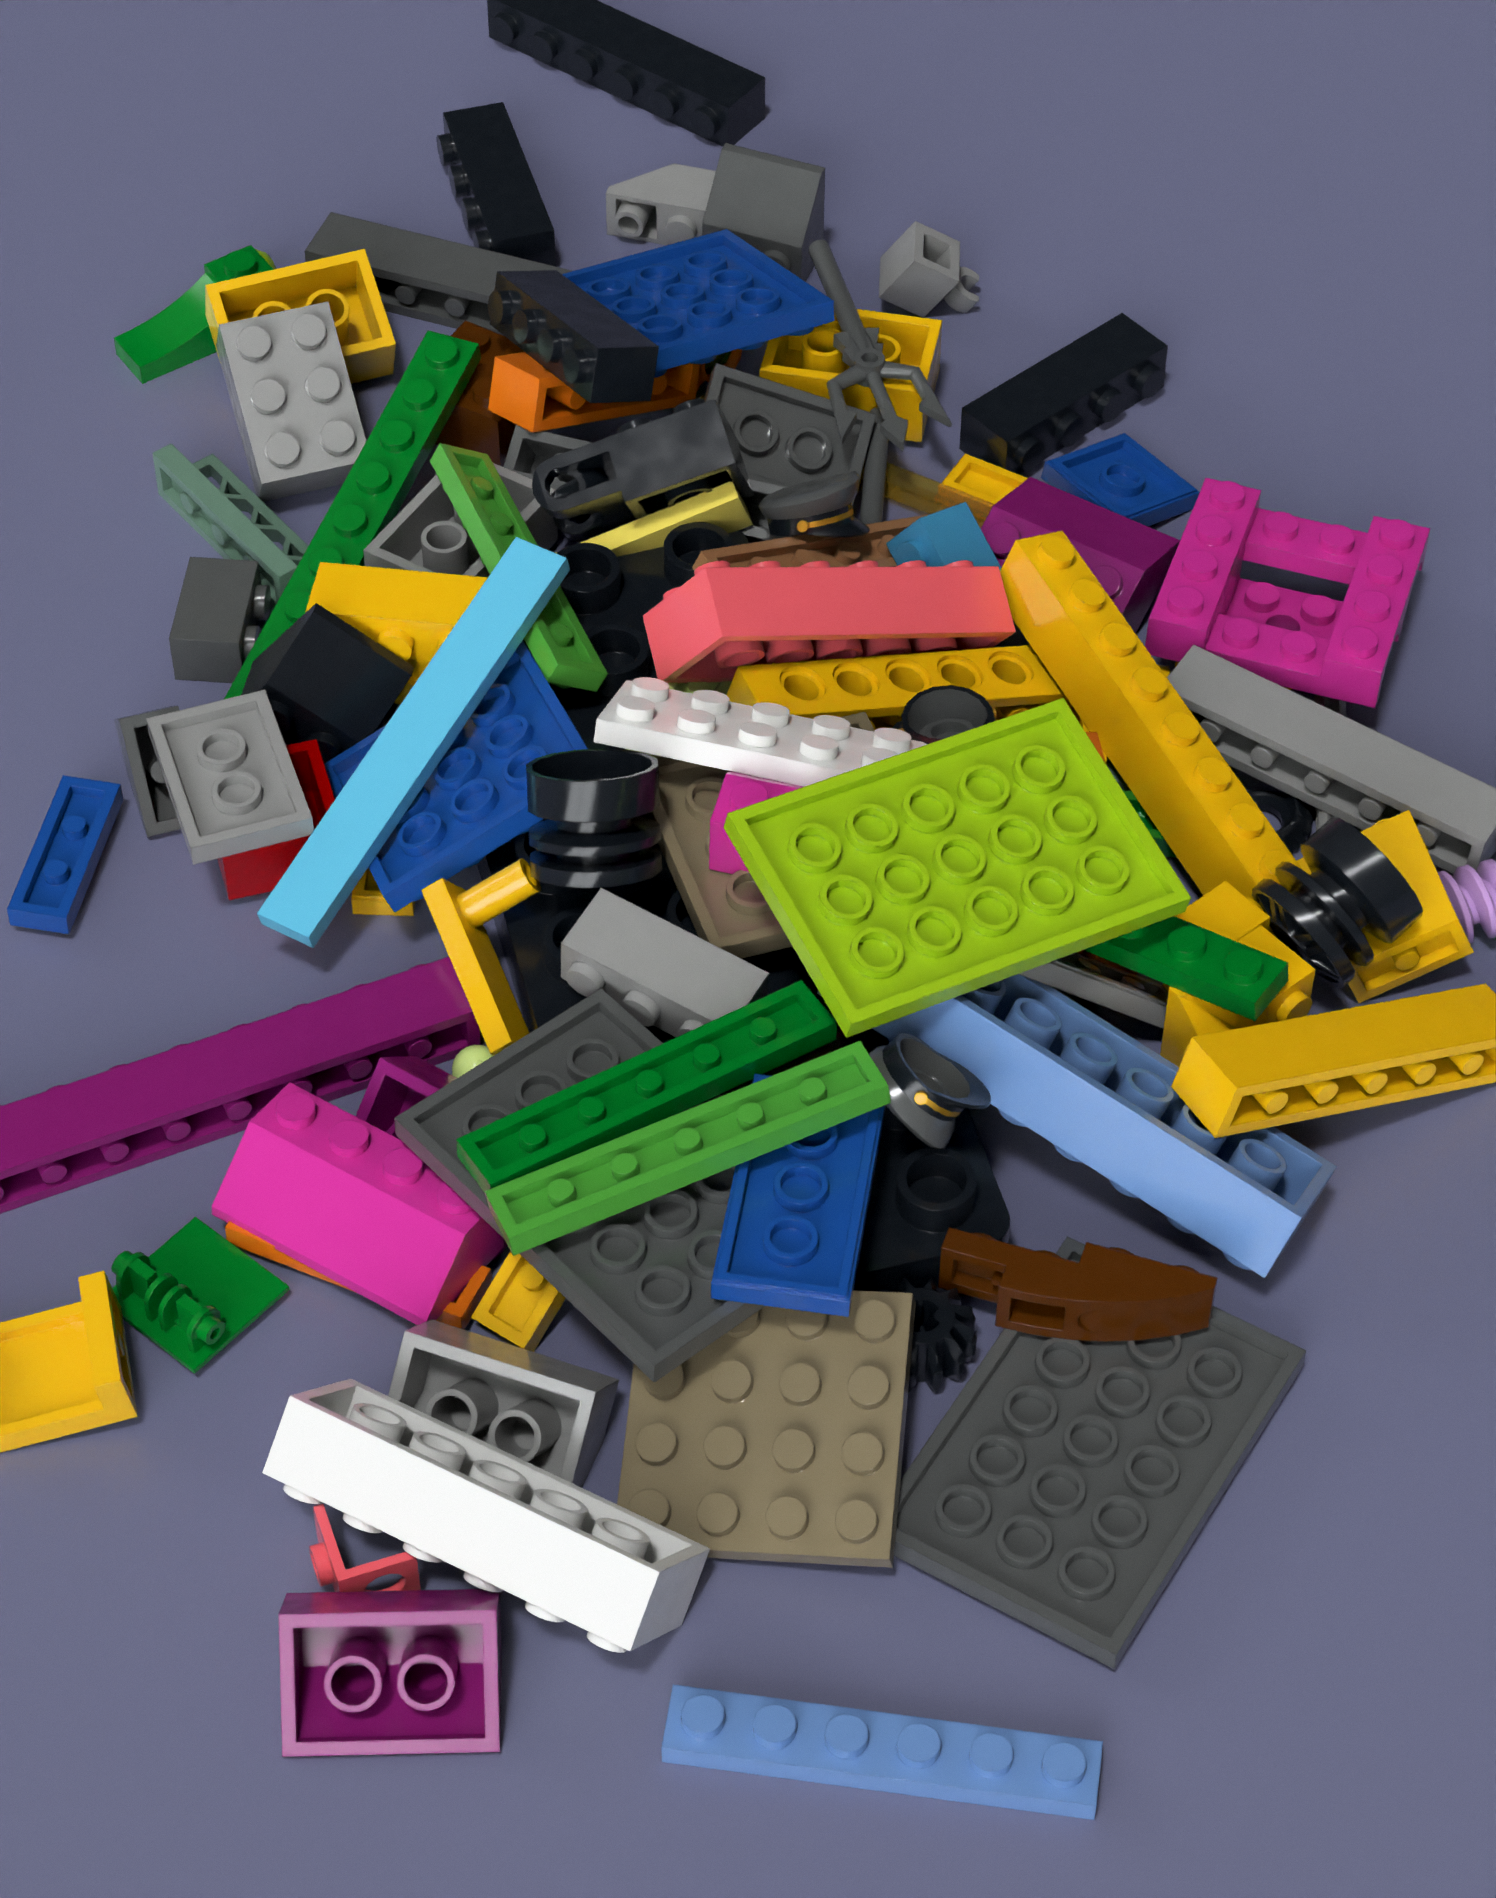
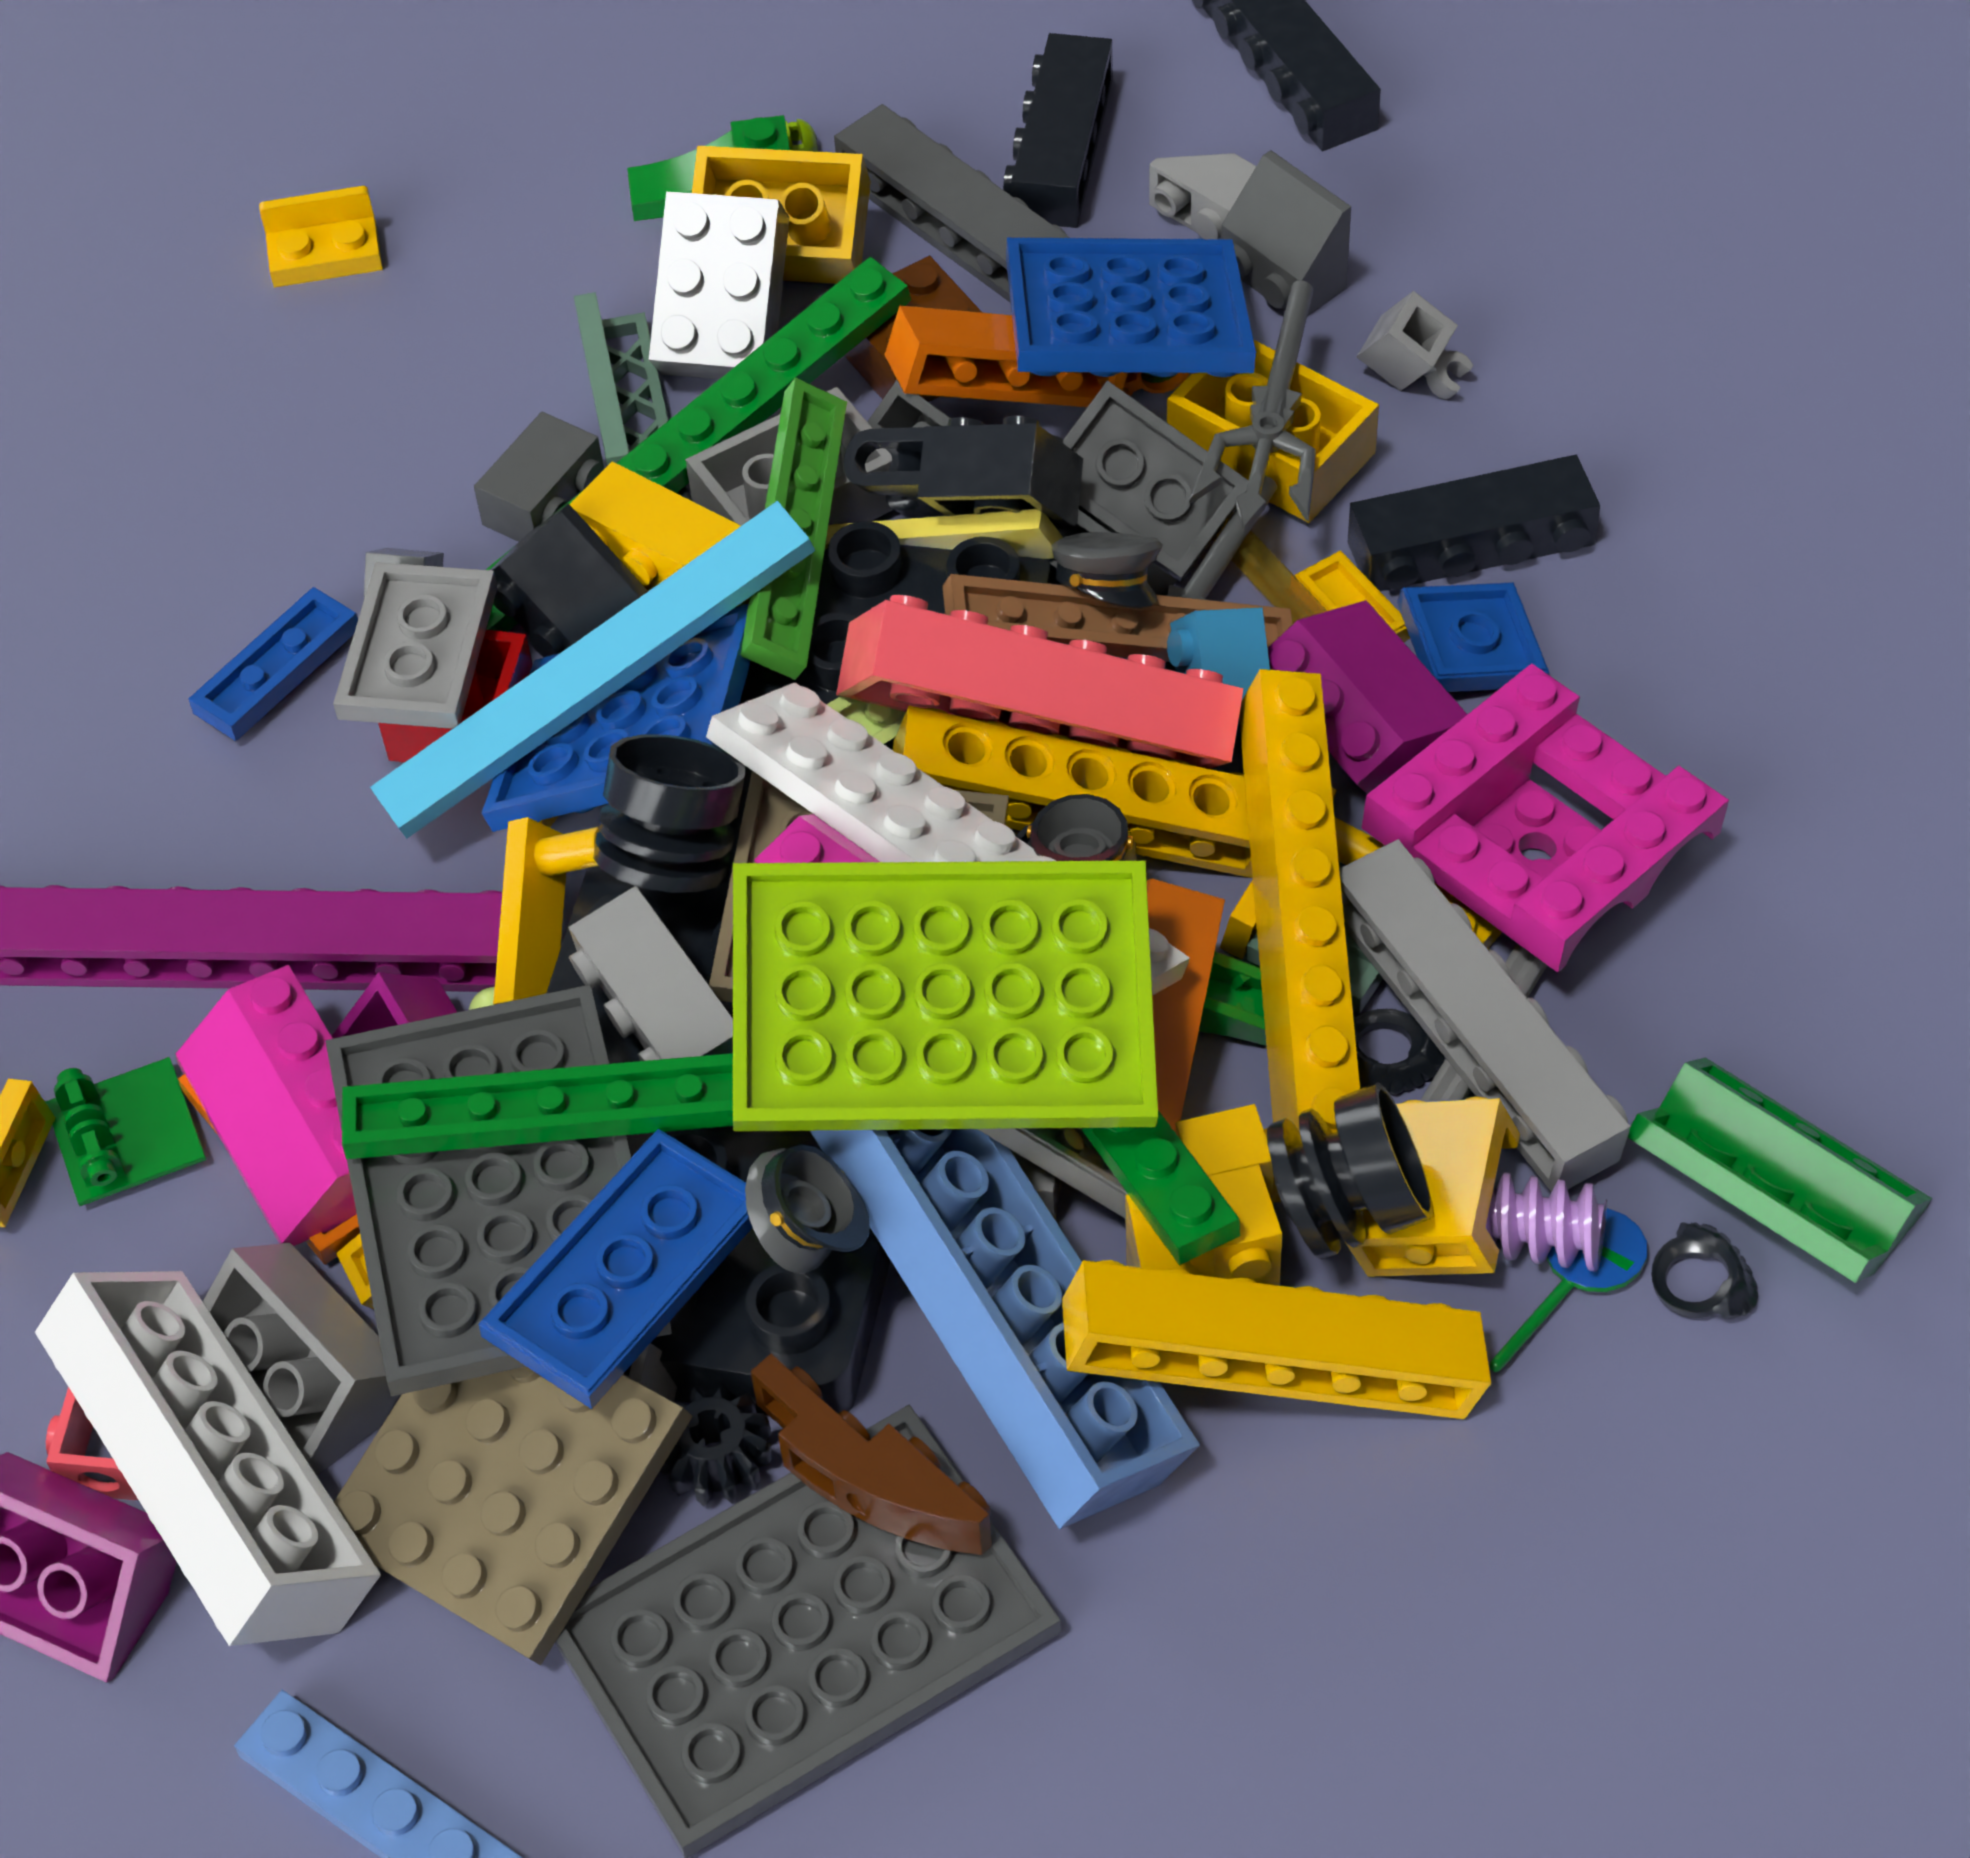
camera: 30 degrees right, 5 degrees up
(573, 336) = (978, 309): black brick -> none
(687, 1147) = (537, 1180): bright green plate -> none

